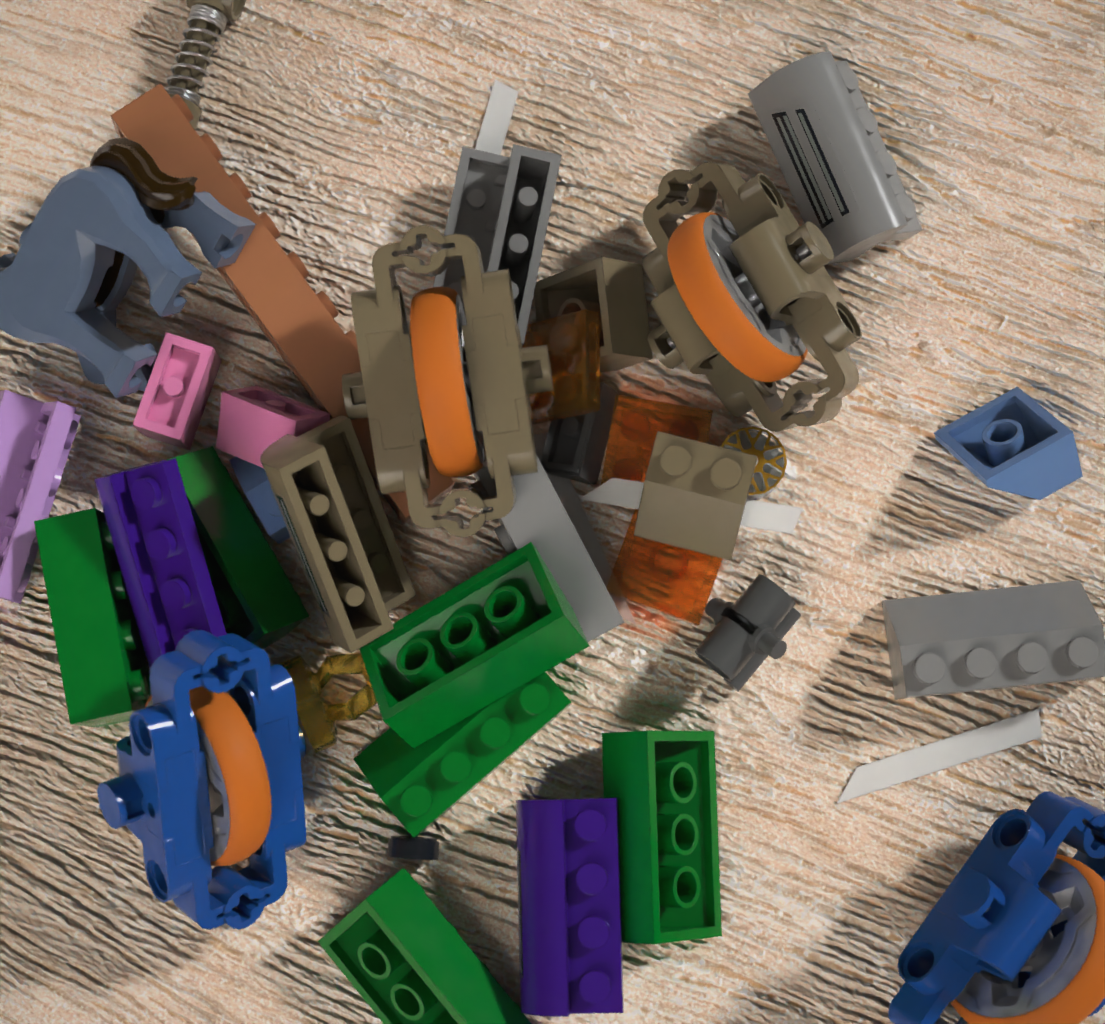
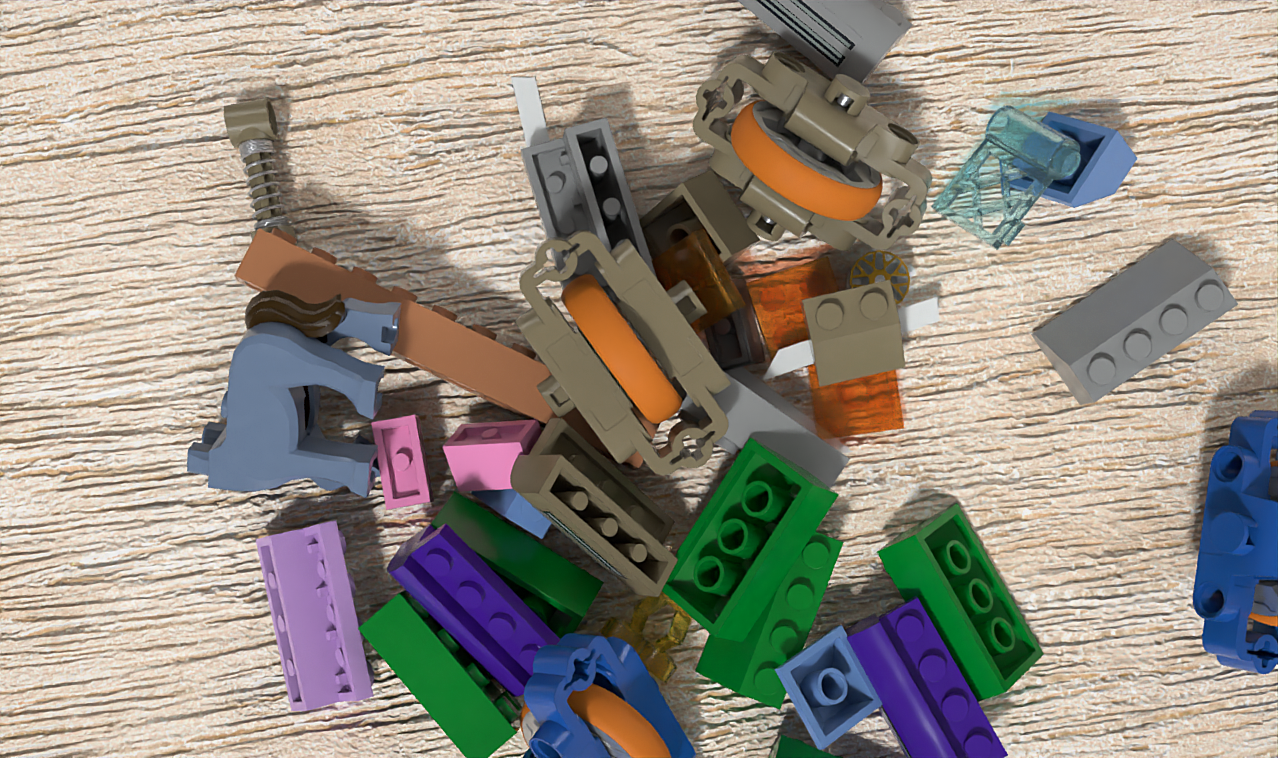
camera: 30 degrees left, 5 degrees up
(413, 848) = (773, 718): black tile -> none
(474, 839) = (828, 687): none -> medium blue slope
(748, 631) = (945, 413): dark grey pin -> none
(943, 754) = (1137, 427): white sticker -> none
(973, 408) = (1028, 148): none -> clear light blue piece

